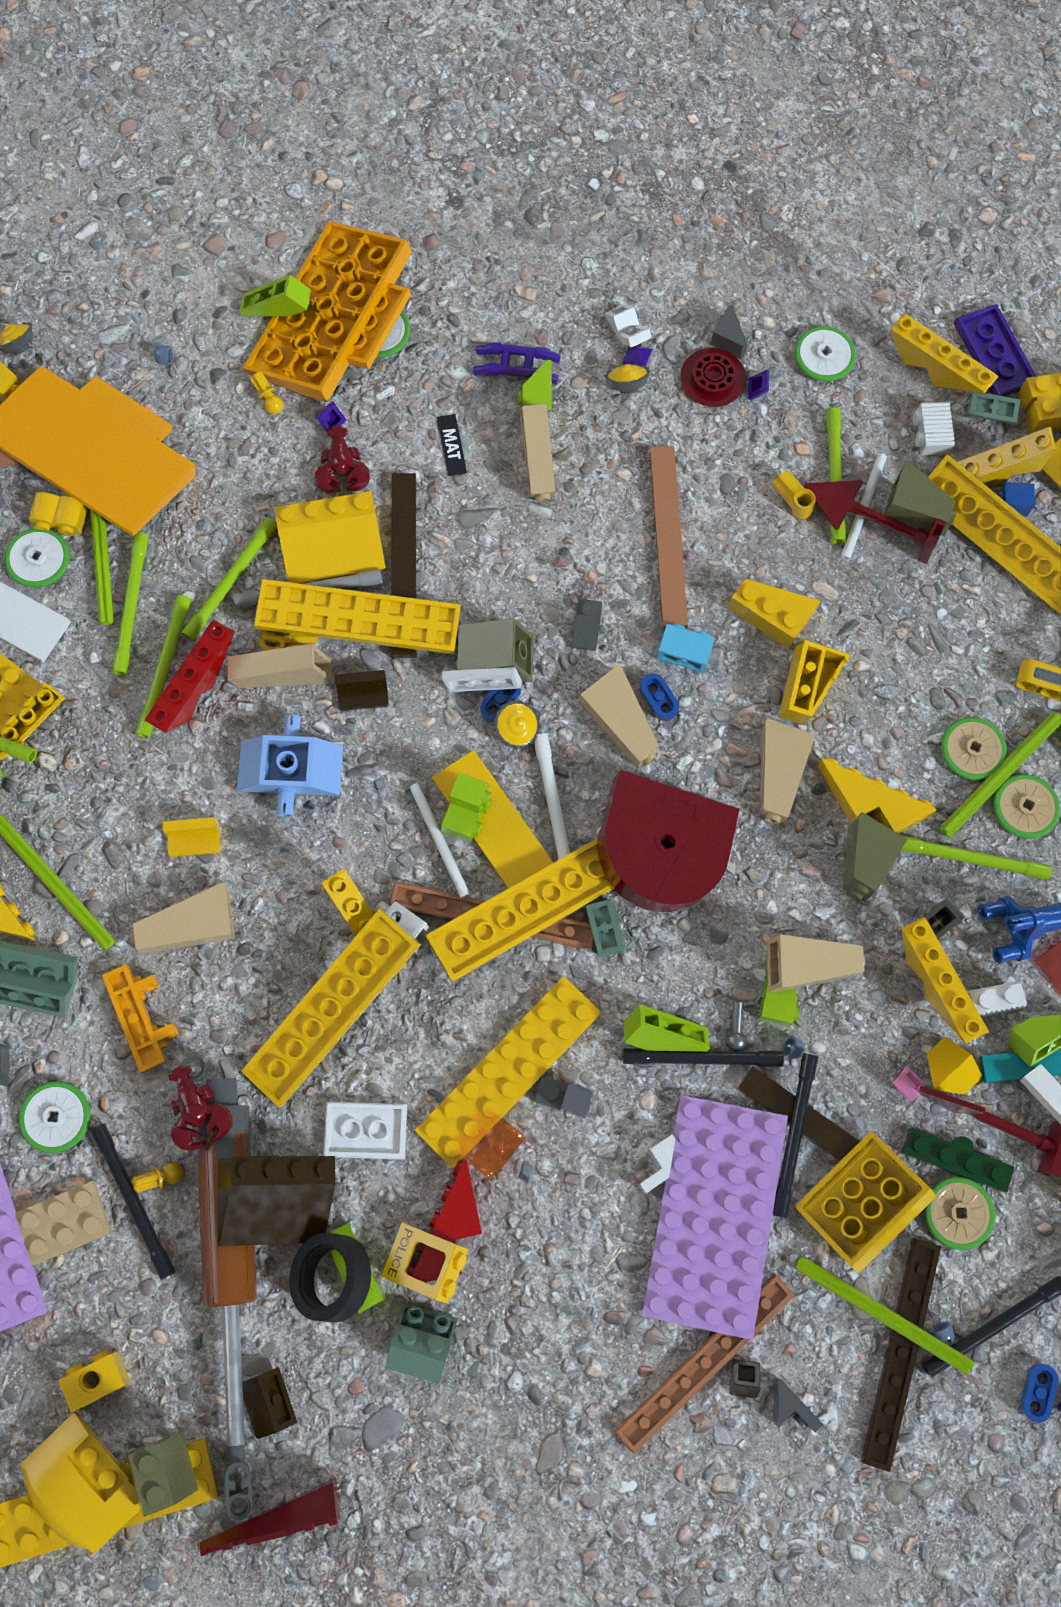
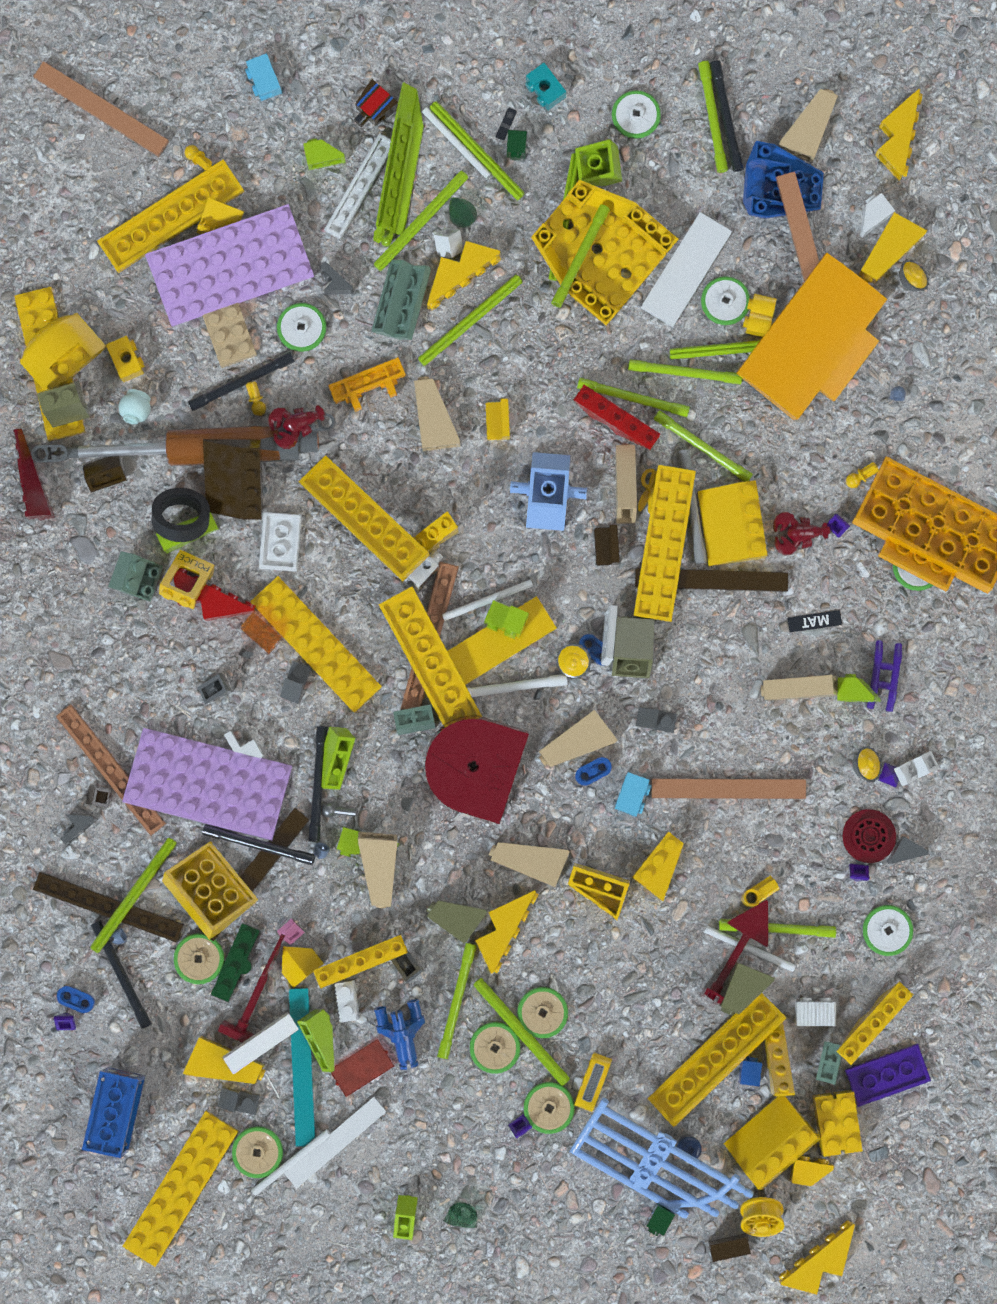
camera: 100 degrees right, 10 degrees up
(167, 1360) = (135, 406): none -> light aqua piece
(278, 298) = (942, 482): lime slope -> none
(580, 1213) = (214, 688): none -> dark grey slope

